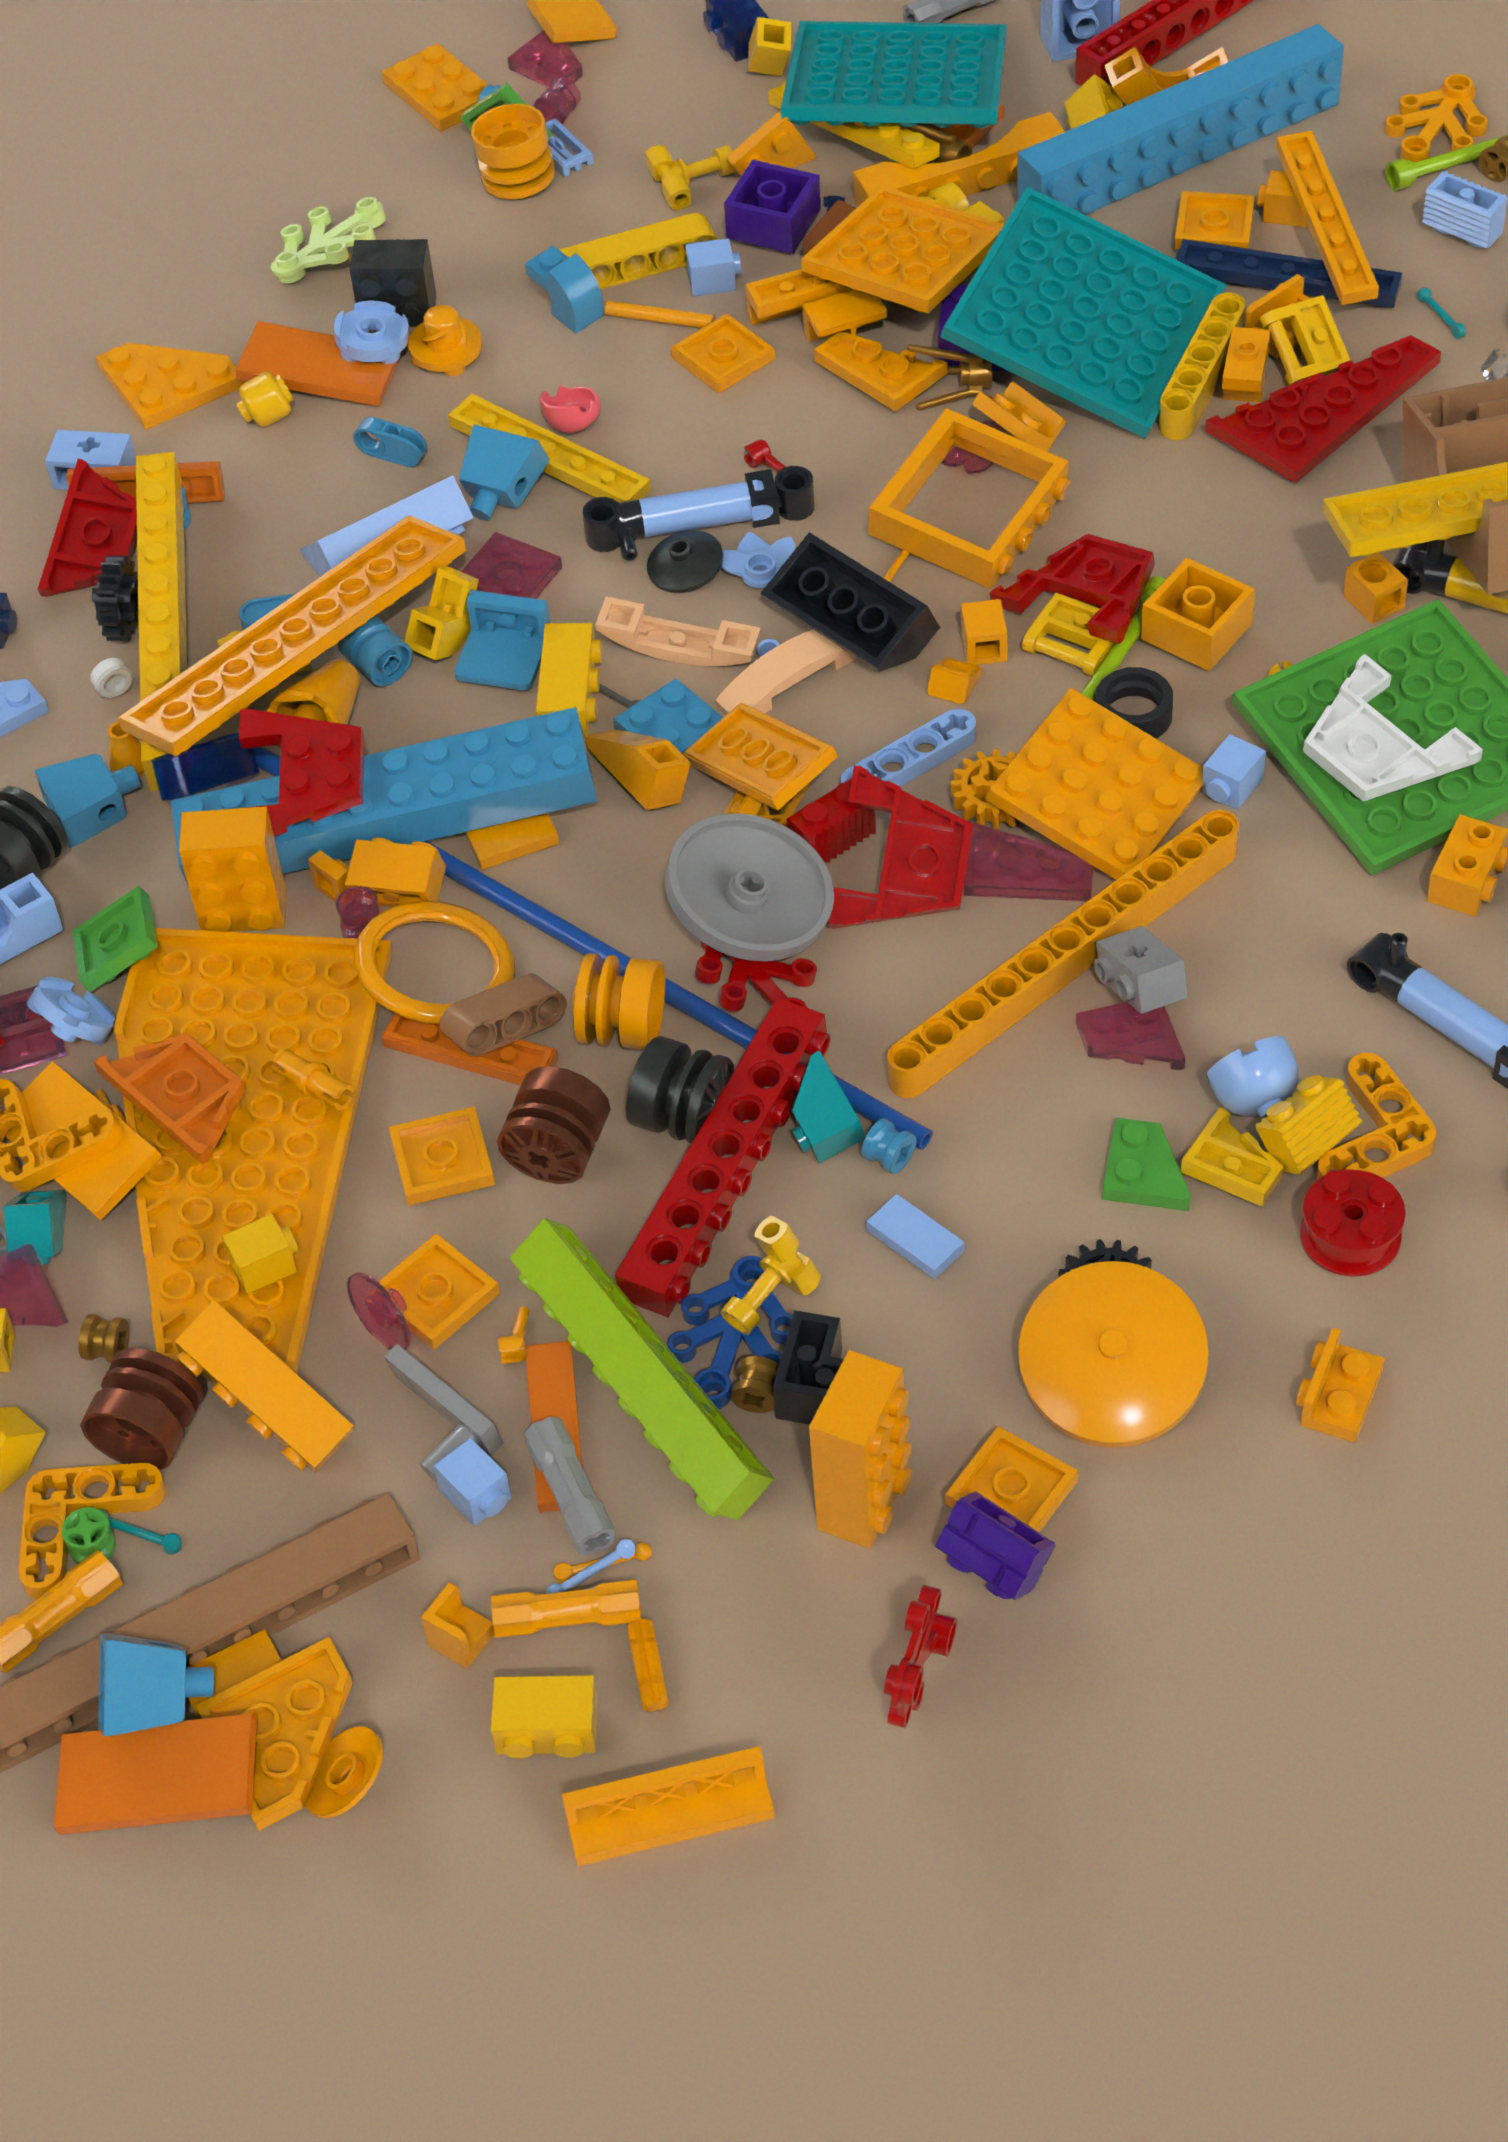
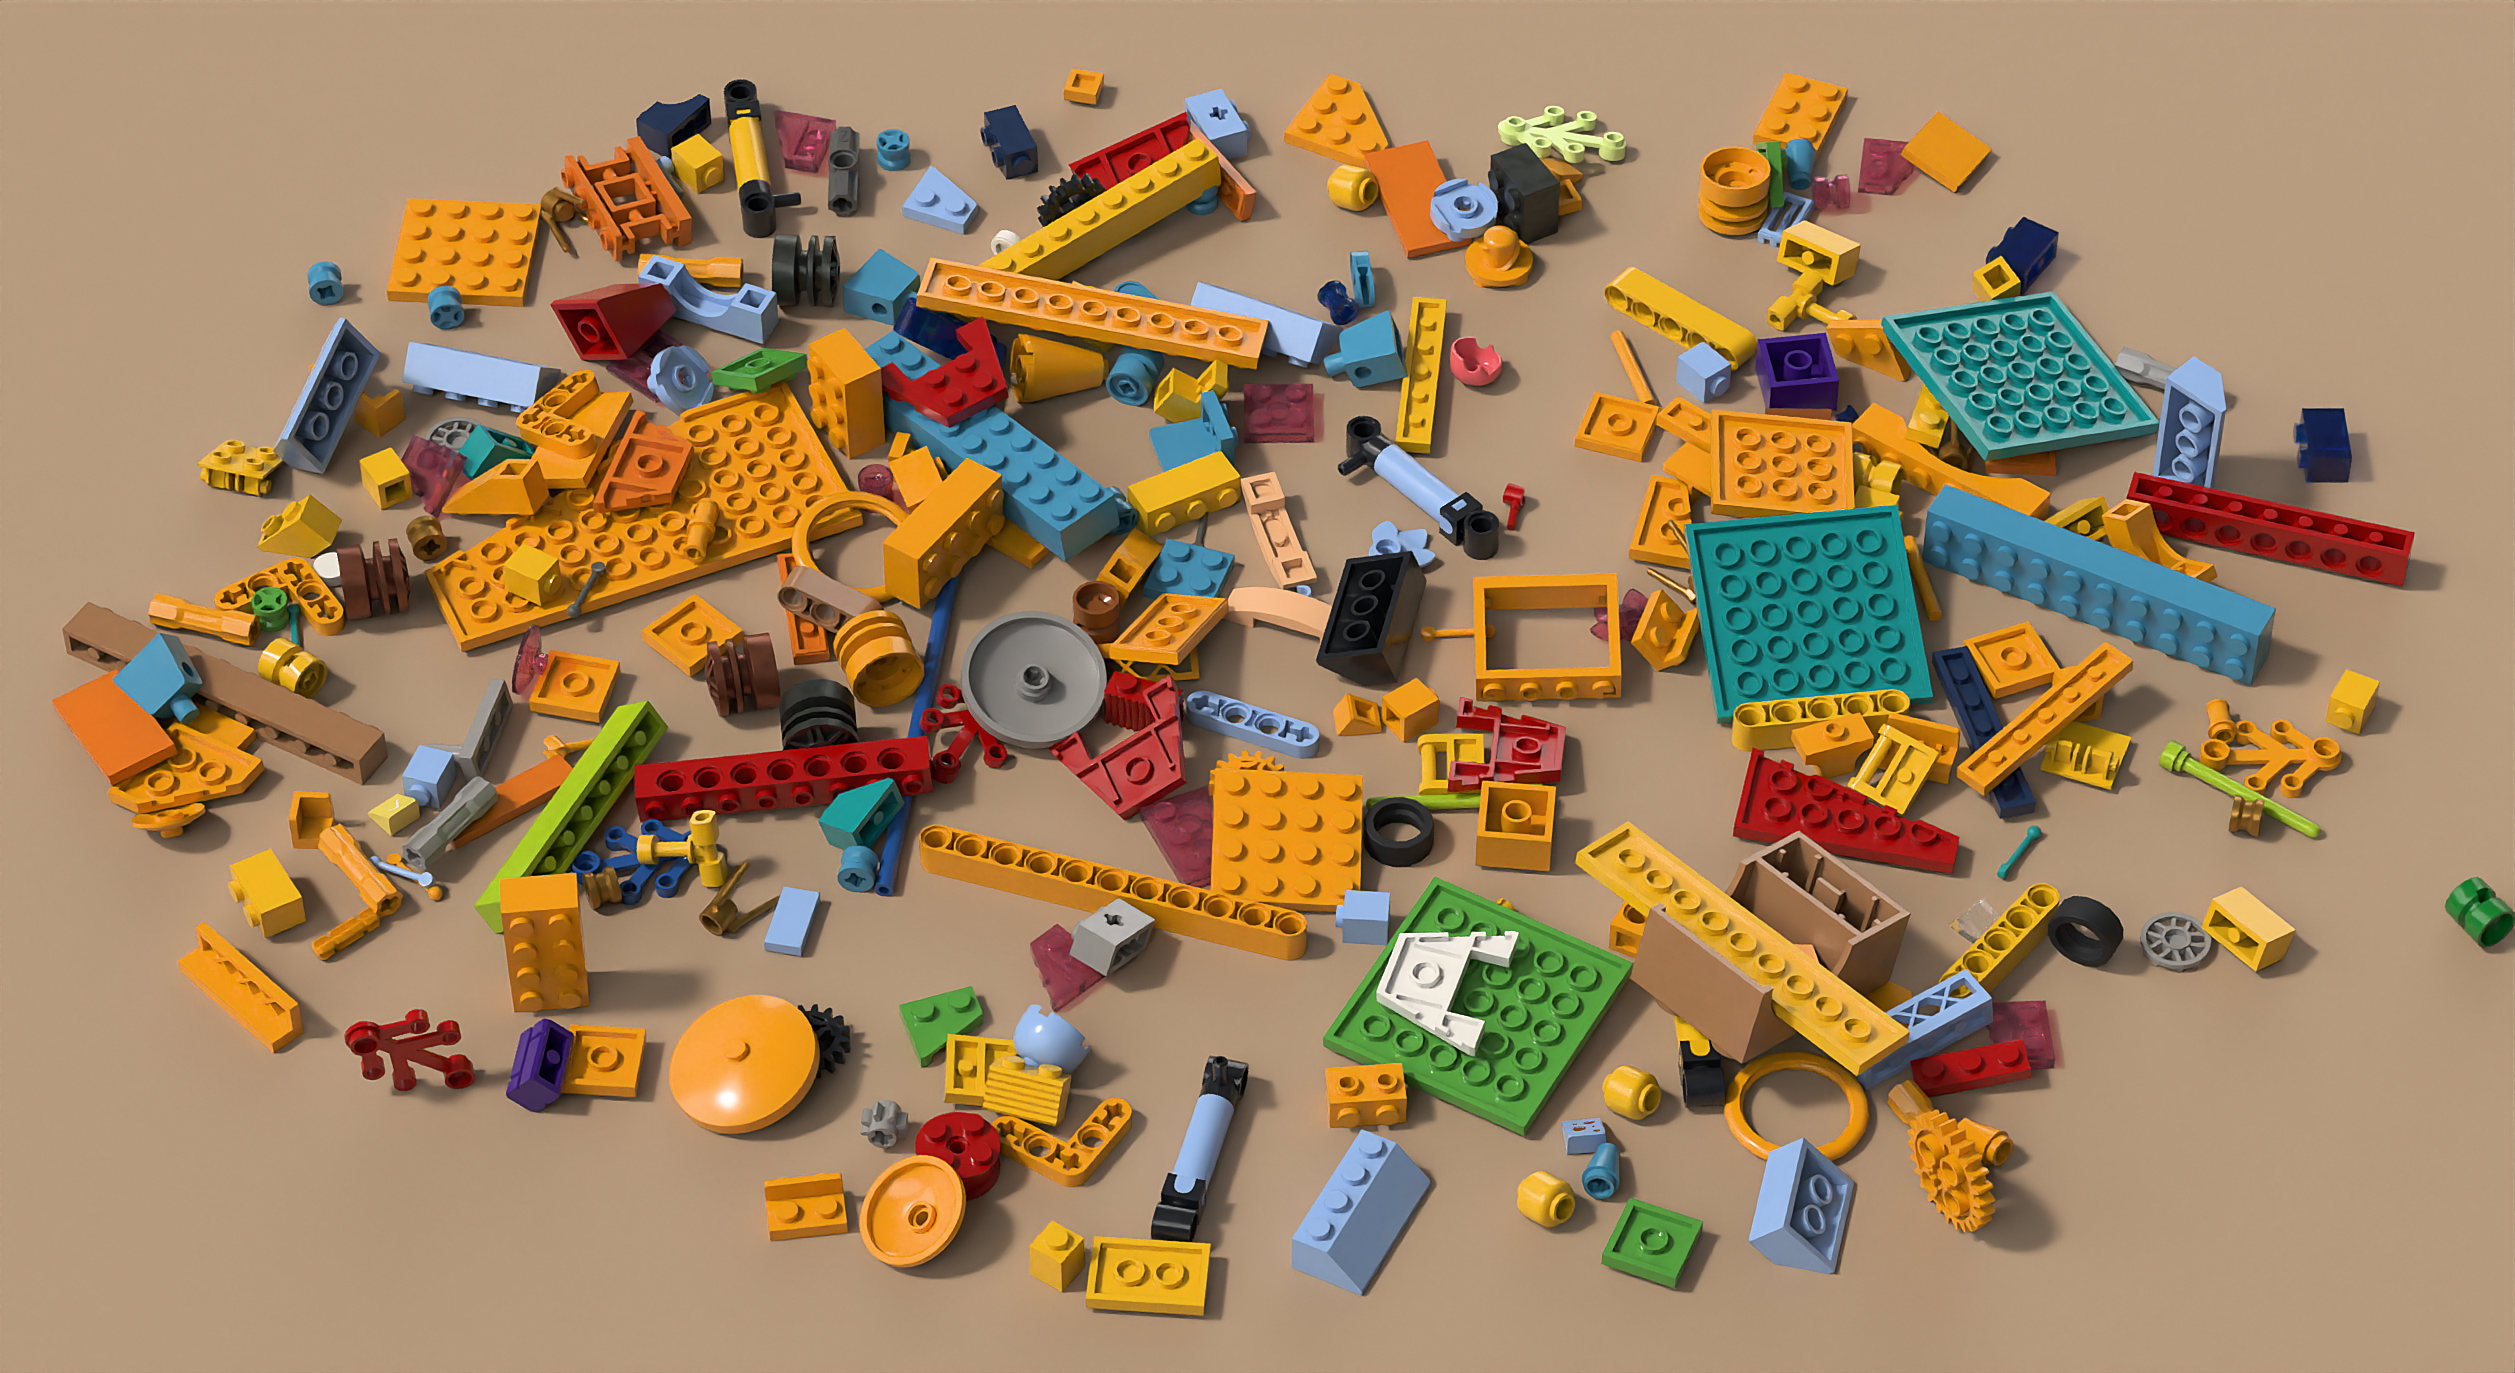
camera: 55 degrees right, 5 degrees down
(68, 1450) = (328, 569): none -> white tile
(103, 1235) = (507, 488): none -> light orange slope
(189, 1550) = (292, 667): none -> yellow wheel
(263, 1387) = (423, 625): light orange wedge -> none
(288, 1197) = (598, 569): none -> dark grey hinge
(404, 470) = (1338, 302): none -> clear blue bush
(493, 1541) = (395, 813): none -> light yellow slope
(500, 871) = (943, 533): none -> light orange brick
(571, 285) = (1602, 297): dark azure brick -> none
(631, 133) = (1819, 250): none -> yellow brick
(680, 803) = (1097, 611): none -> dark orange wheel
(685, 561) = (1366, 506): pearl dark grey dish -> none
(807, 1366) = (620, 909): black brick -> none
(868, 1292) = (722, 911): none -> pearl gold plant
(1270, 1266) = (884, 1123): none -> light grey gear
(1372, 222) = (2086, 754): none -> yellow hinge
(1379, 132) = (2220, 721): none -> light orange pin
(1414, 48) = (2352, 701): none -> yellow brick
(1450, 1265) = (900, 1204): none -> light orange dish
(1464, 210) = (2144, 811): light blue brick -> none

